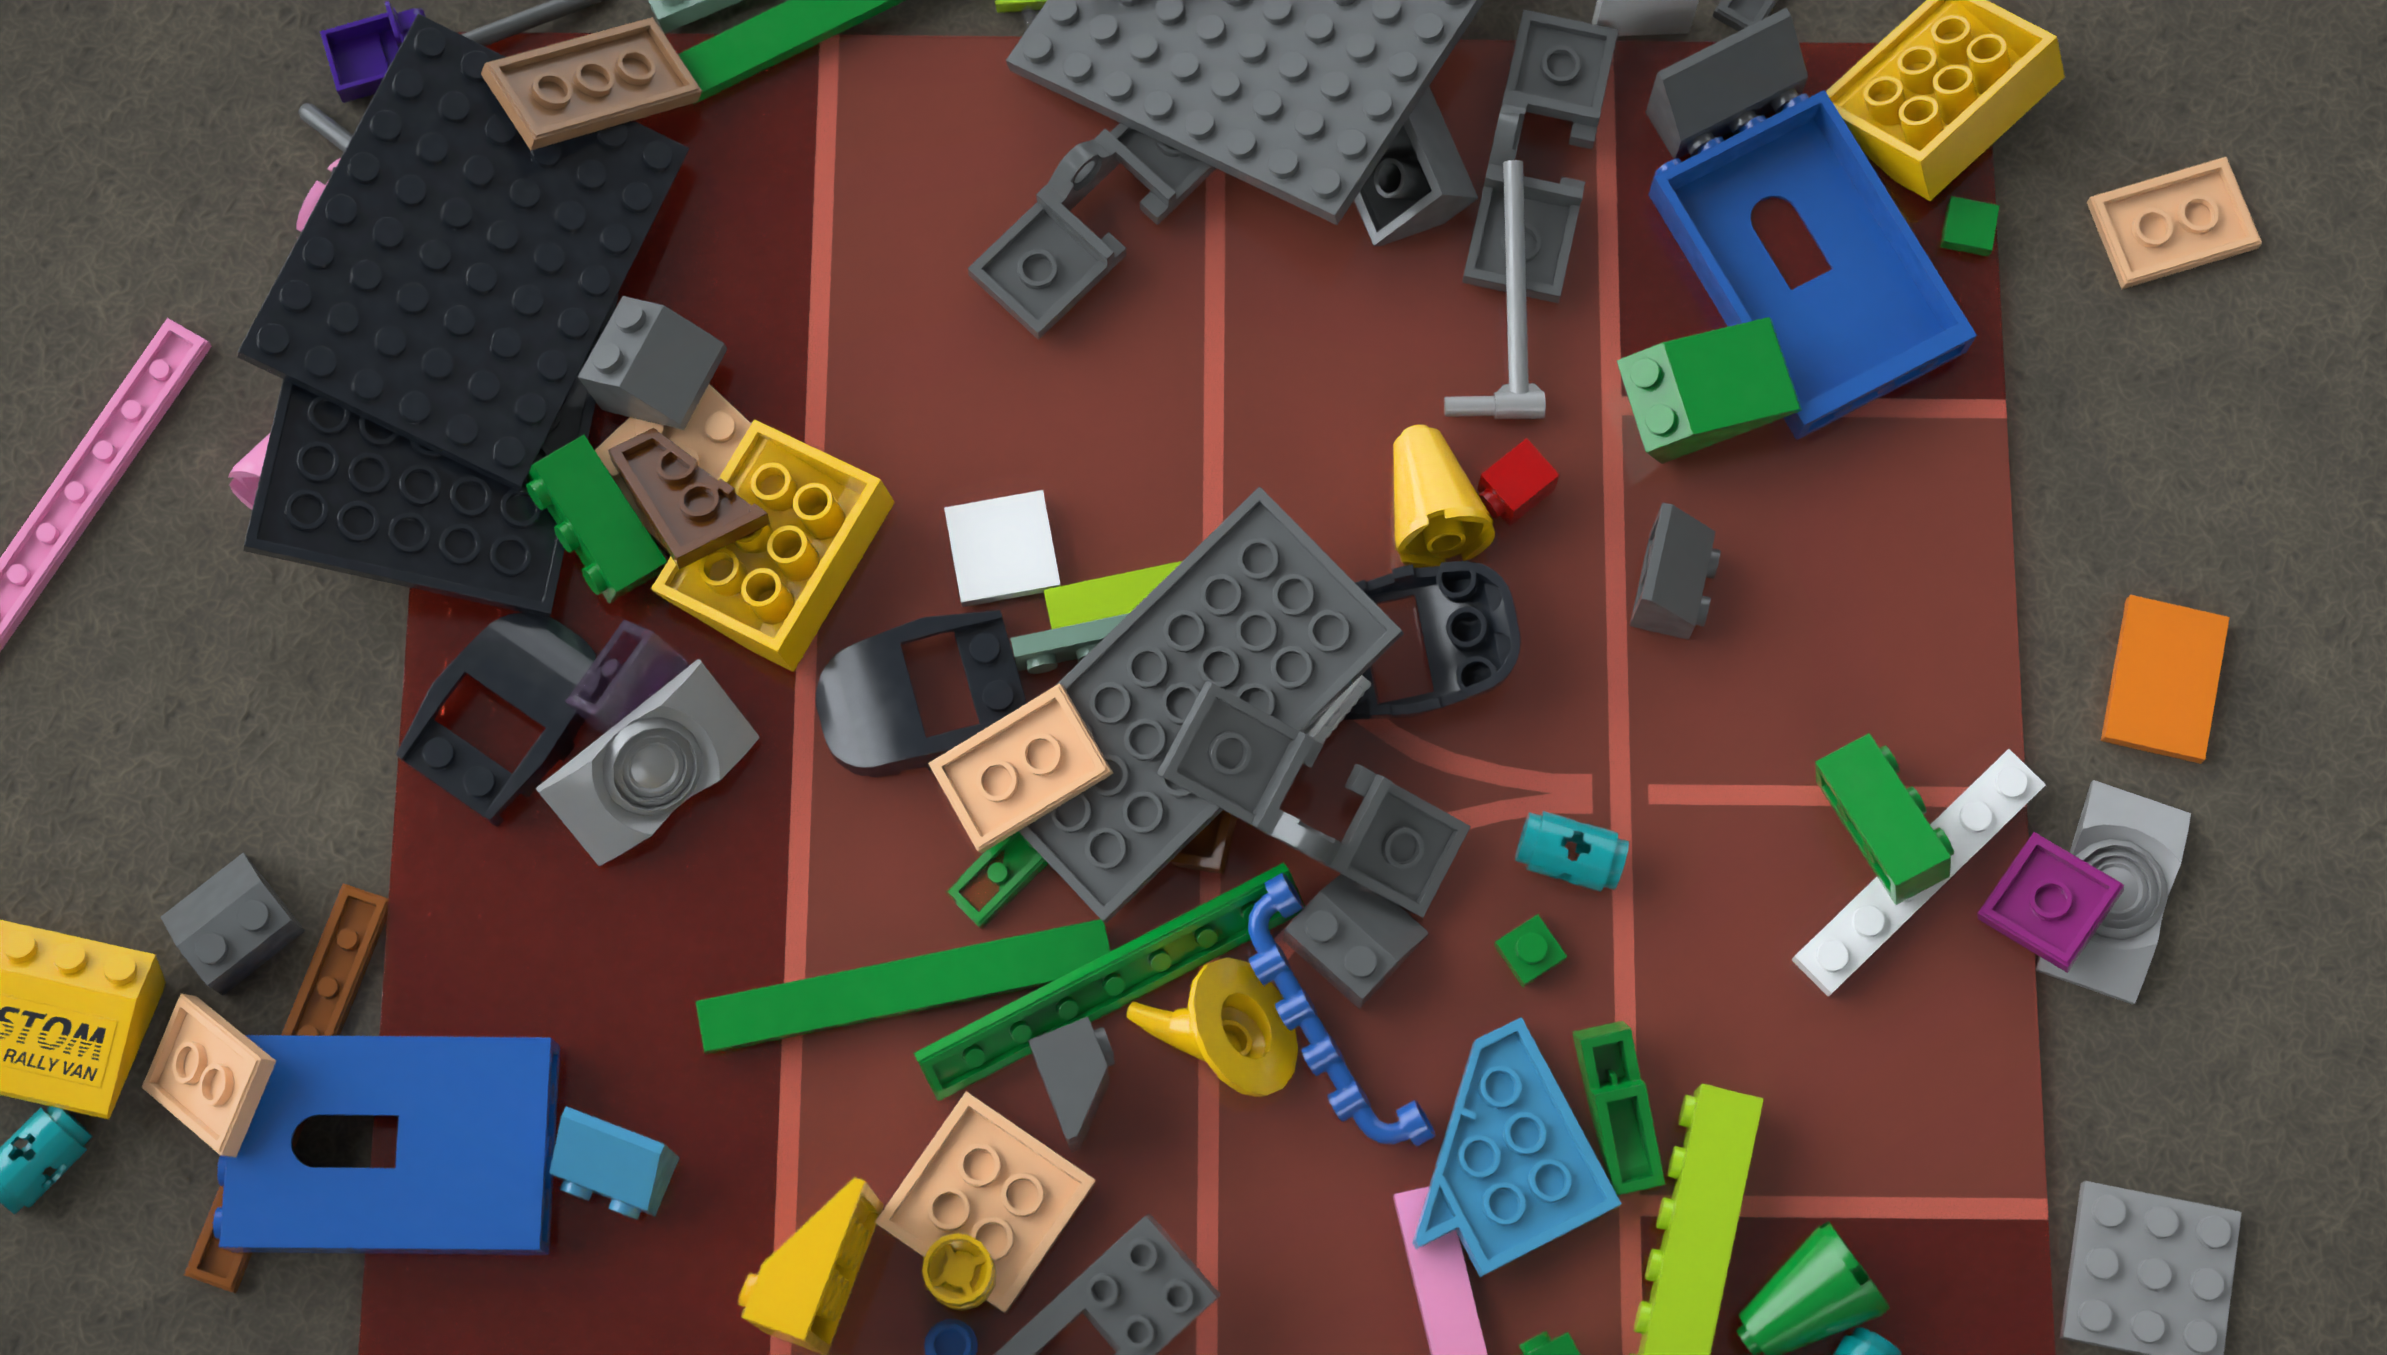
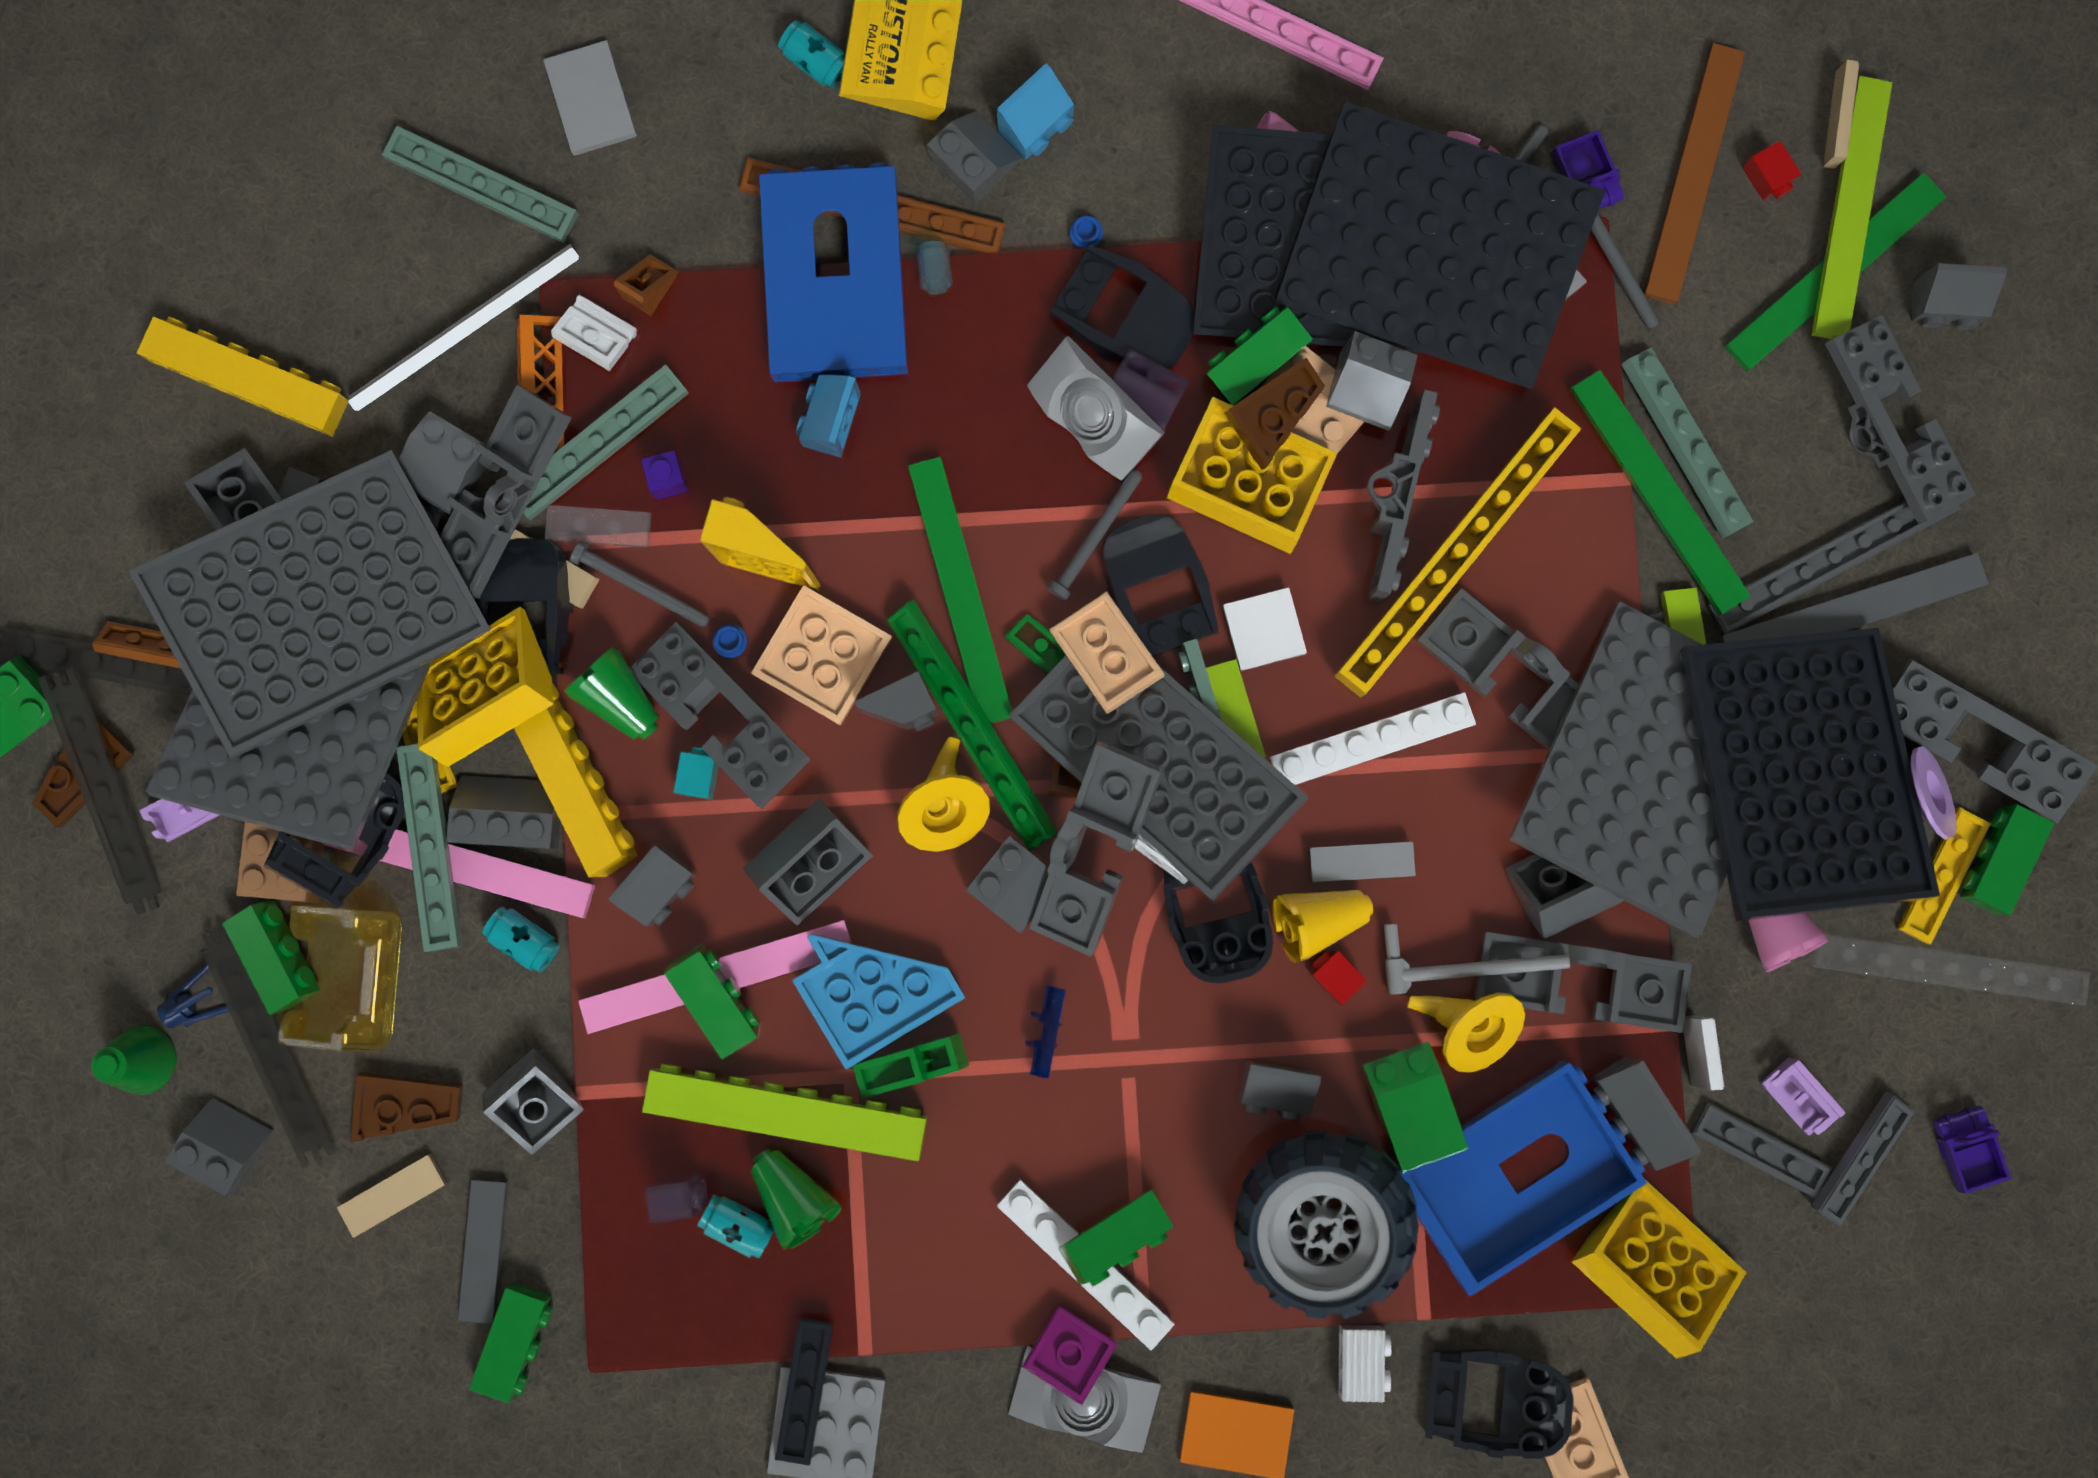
camera: 85 degrees right, 10 degrees up
(182, 821) = (1035, 113): none -> dark azure slope
(208, 1075) = (868, 153): light nougat tile -> none
(372, 764) = (1086, 232): none -> blue plate
(401, 990) = (934, 267): none -> clear light blue brick
(591, 83) = (1569, 315): medium nougat tile -> none
(796, 325) = (1395, 508): none -> dark grey plate
(914, 836) = (1060, 588): none -> dark grey bar
(919, 269) = (1457, 552): none -> yellow brick
(959, 1271) = (769, 640): yellow wheel -> none
(1176, 403) = (1375, 739): none -> white plate
(1301, 1243) = (807, 862): none -> dark grey slope
(1322, 1052) = (934, 867): blue bar -> none
(1352, 439) = (1362, 861): none -> light grey tile
(1530, 950) = (1013, 1002): green plate -> none
(1593, 907) = (1051, 1018): none -> clear blue piece
(1598, 299) = (1476, 1030): none -> yellow piece
(1599, 851) = (1080, 1047): teal piece -> none
(1938, 521) = (1307, 1267): none -> wheel
(1969, 226) = (1557, 1291): green tile -> none
(2066, 494) = (1363, 1363): none -> white brick
(2099, 1299) = (804, 1390): none -> black tile
(2134, 270) = (1534, 1405): none -> black slope

